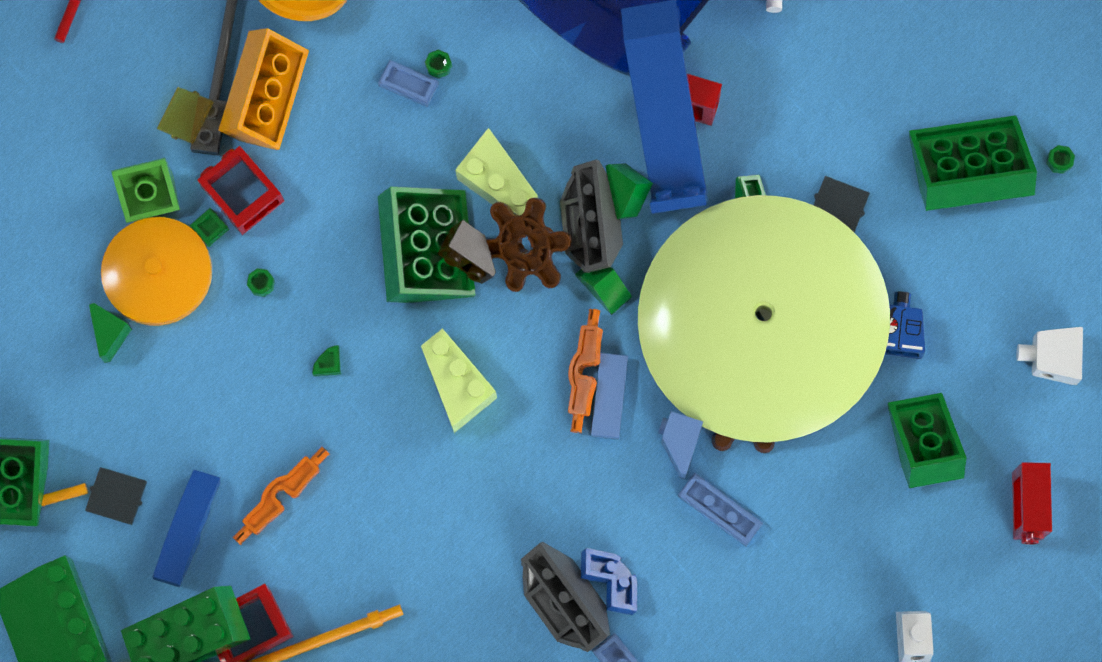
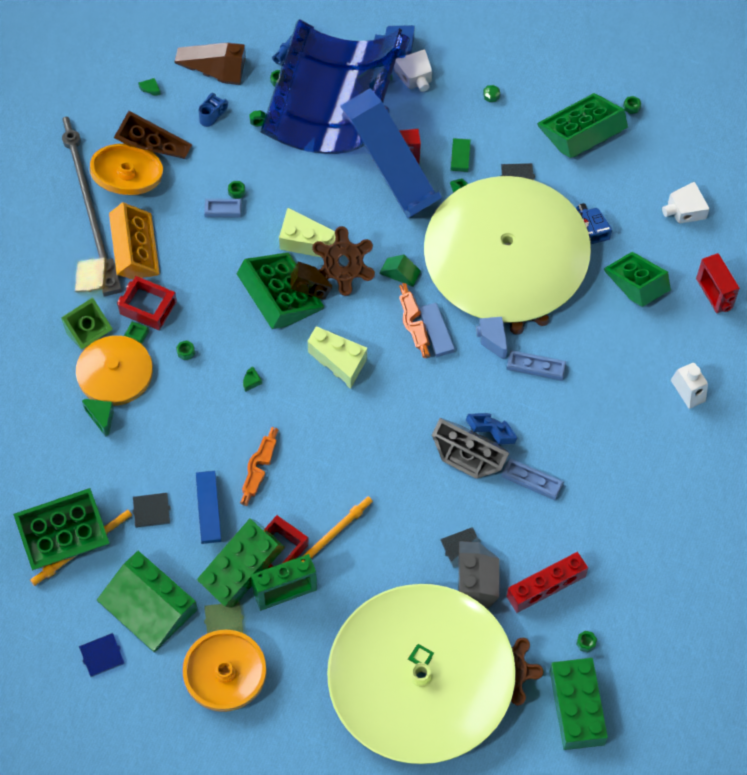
camera: 30 degrees left, 15 degrees down
(590, 218) = (371, 225): dark grey wedge -> none
(627, 189) = (389, 211): green slope -> none
(774, 137) = (460, 155): none -> green tile
(867, 56) = (491, 93): none -> green tile

